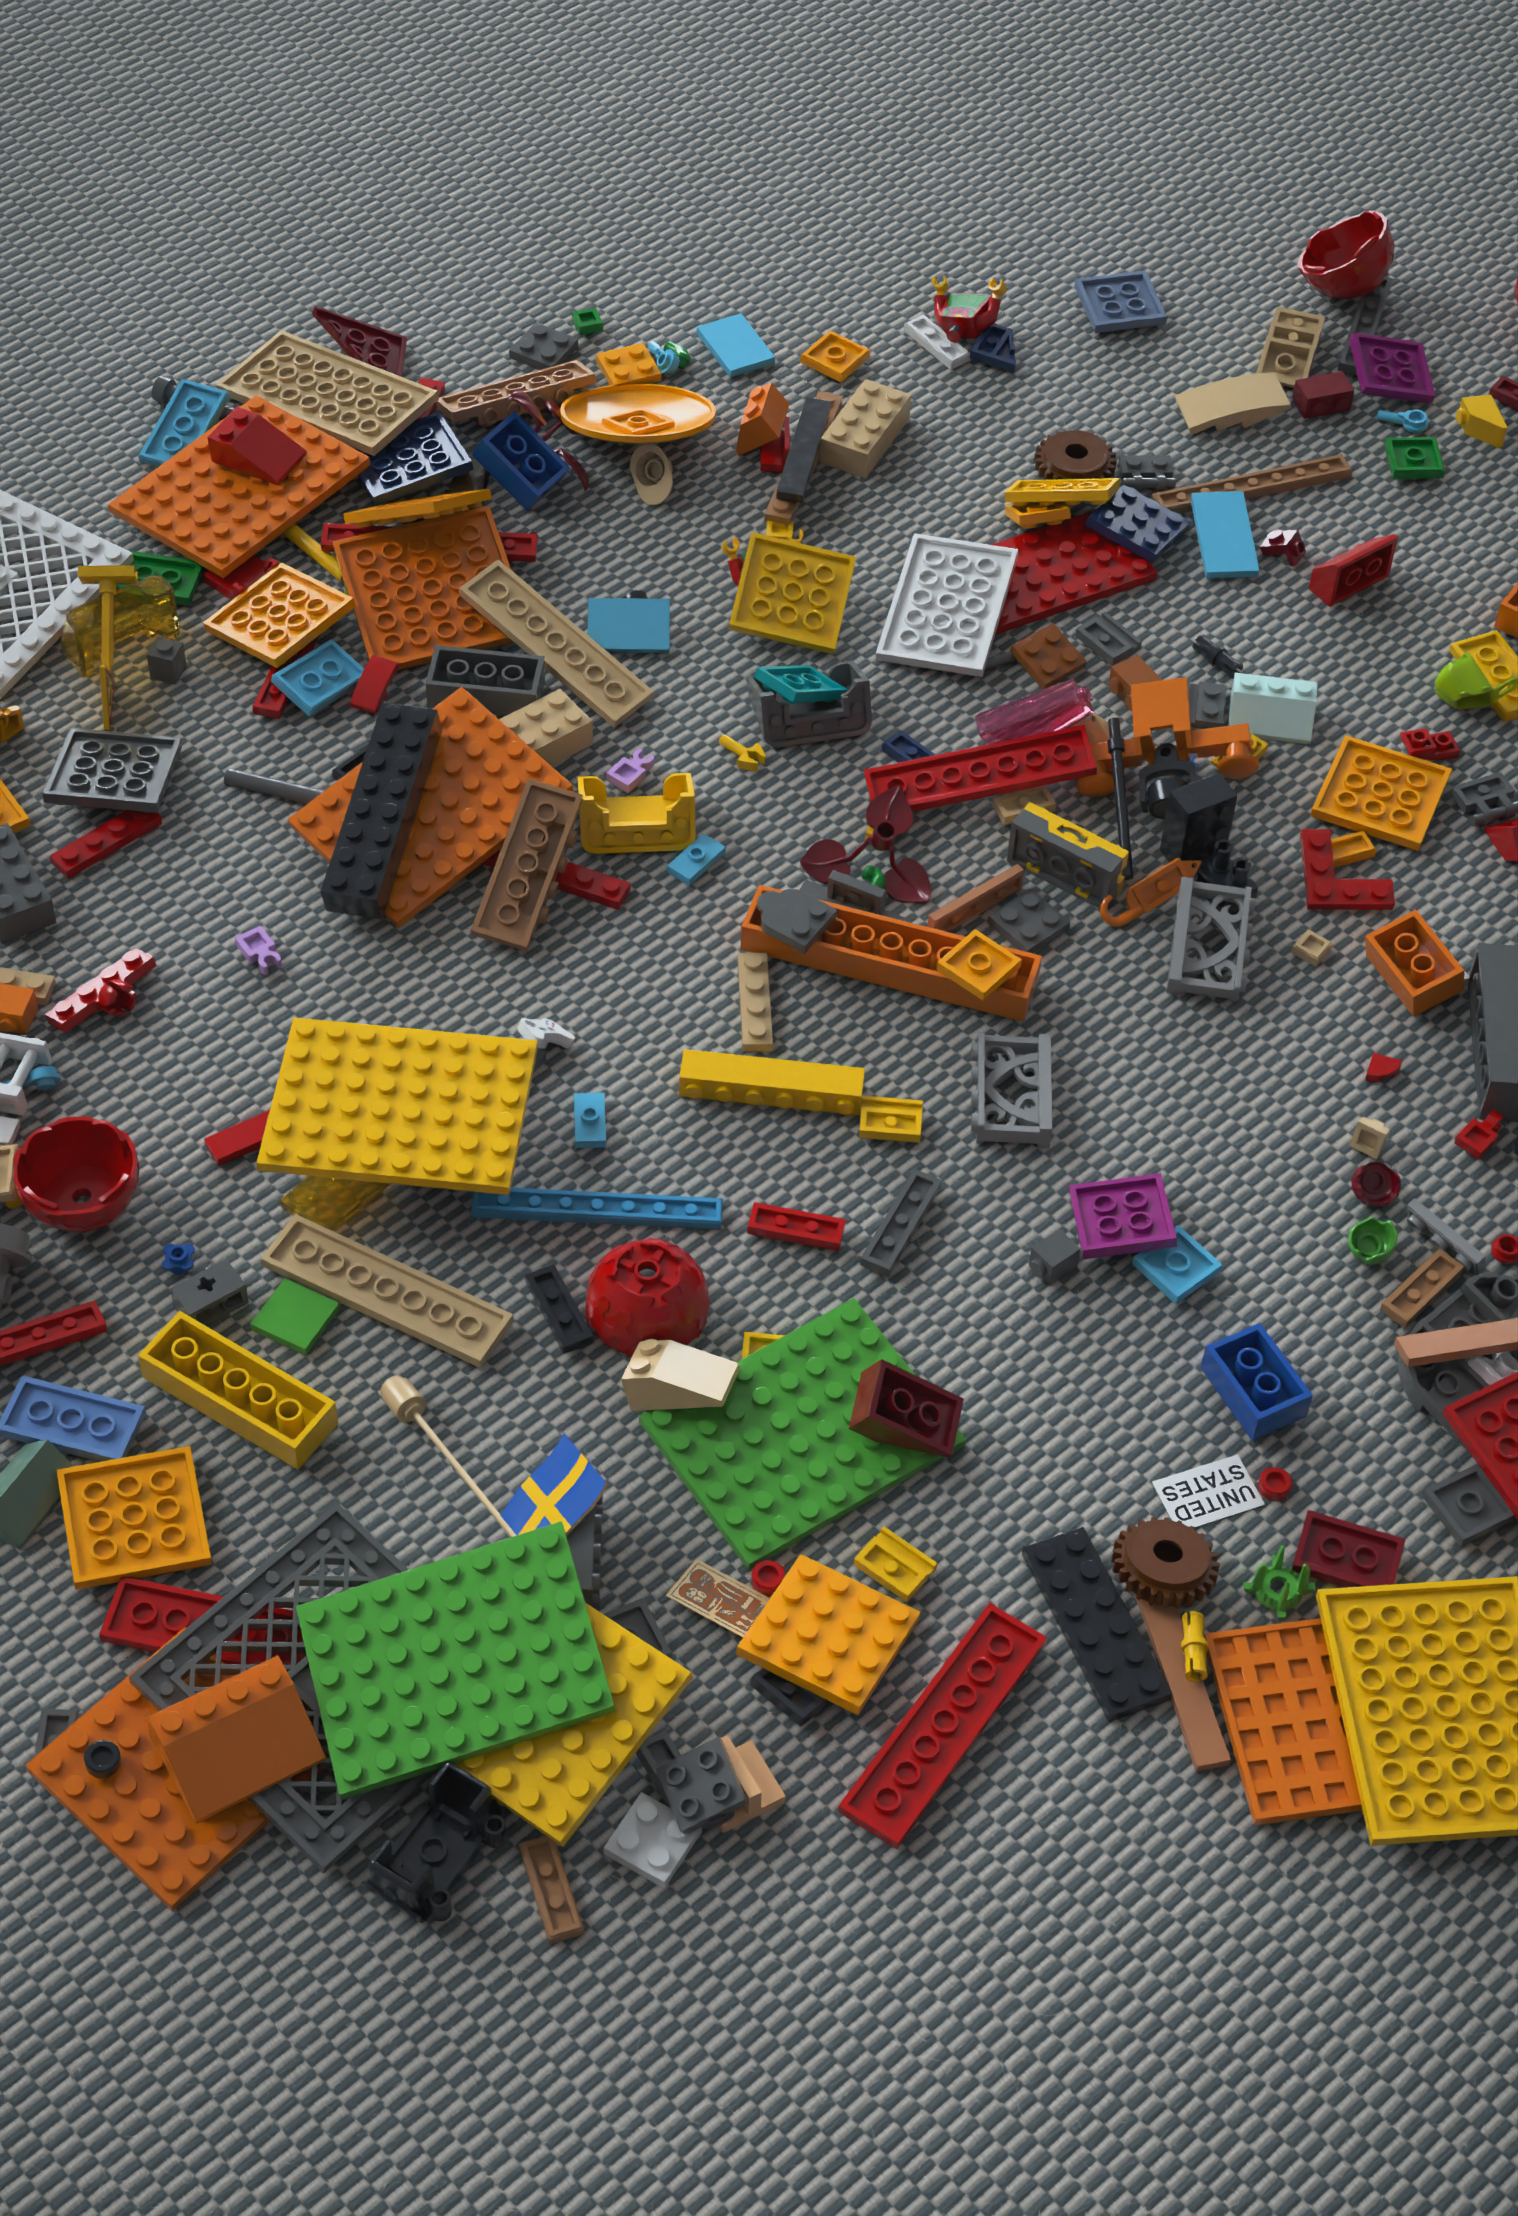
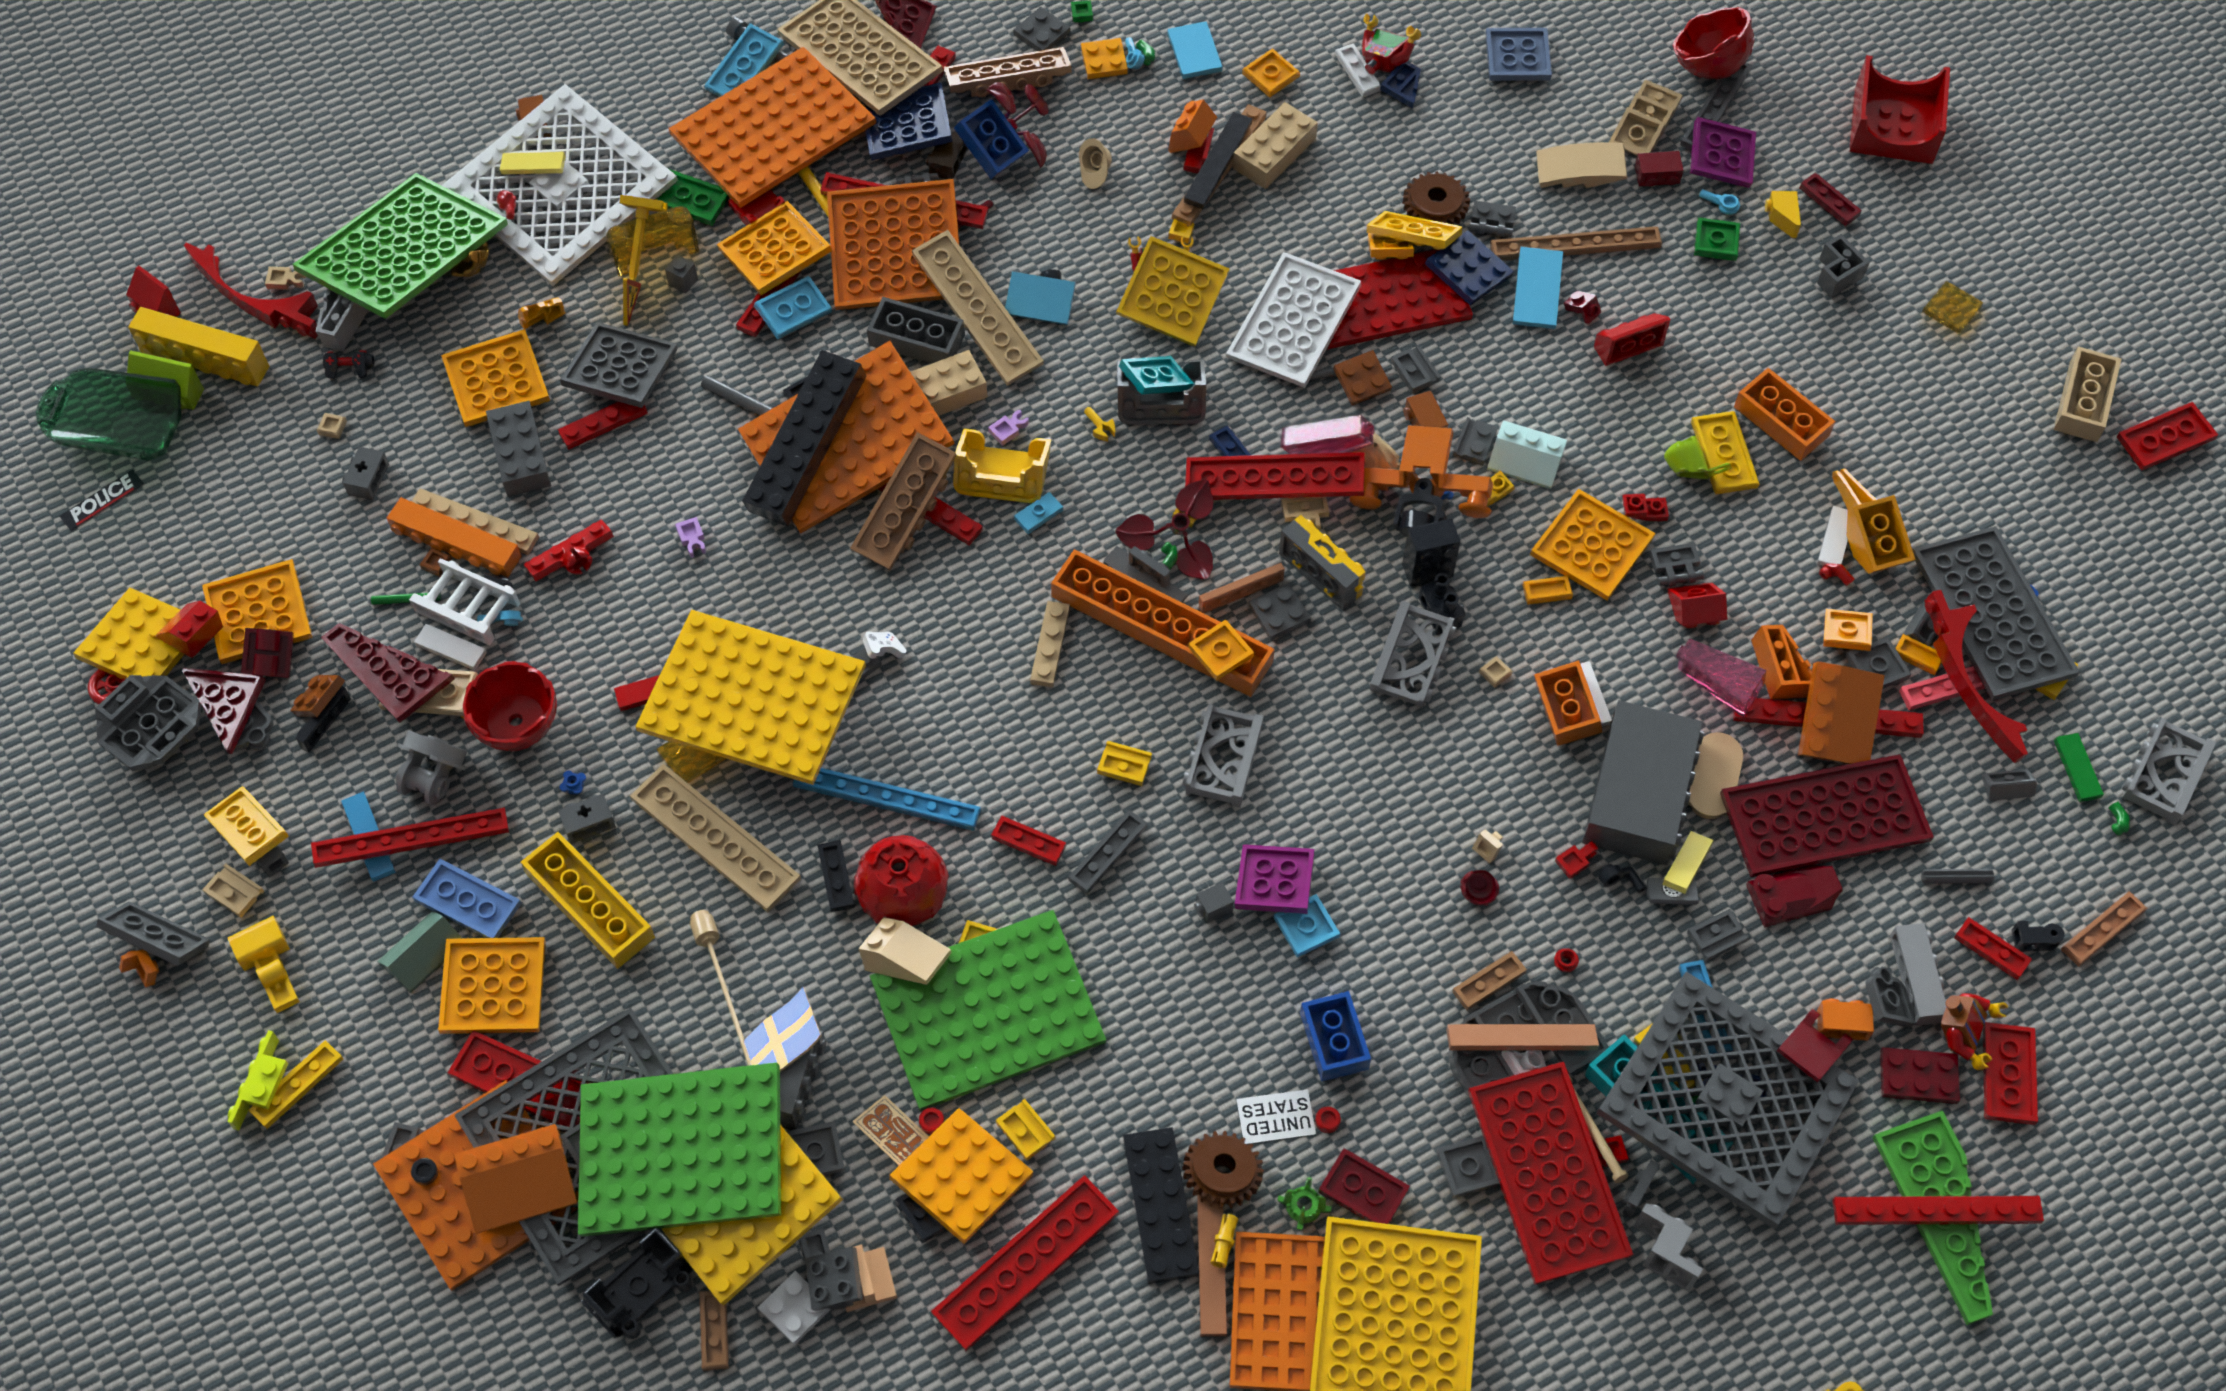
camera: 15 degrees right, 10 degrees up
(254, 447) = (787, 98): red slope -> none
(295, 1316) = (645, 845): bright green tile -> none
(373, 684) = (830, 320): red slope -> none
(417, 508) = (898, 172): light orange plate -> none
(589, 1120) = (900, 722): medium azure plate -> none
(638, 413) = (1095, 107): light orange dish -> none
(771, 1082) = (1042, 716): yellow brick -> none
(794, 917) = (1092, 583): dark grey plate -> none
(905, 1410) = (1063, 1012): dark red slope -> none
(1116, 748) = (1383, 476): black bar -> none
(1150, 891) = (1381, 603): orange plate -> none
(1217, 656) = (1498, 398): black pin -> none
(1328, 893) = (1523, 626): red plate -> none
(1372, 1241) = (1462, 934): bright green hair -> none
(1382, 1067) = (1518, 786): red tile -> none
(1444, 1237) = (1519, 943): light grey tile -> none

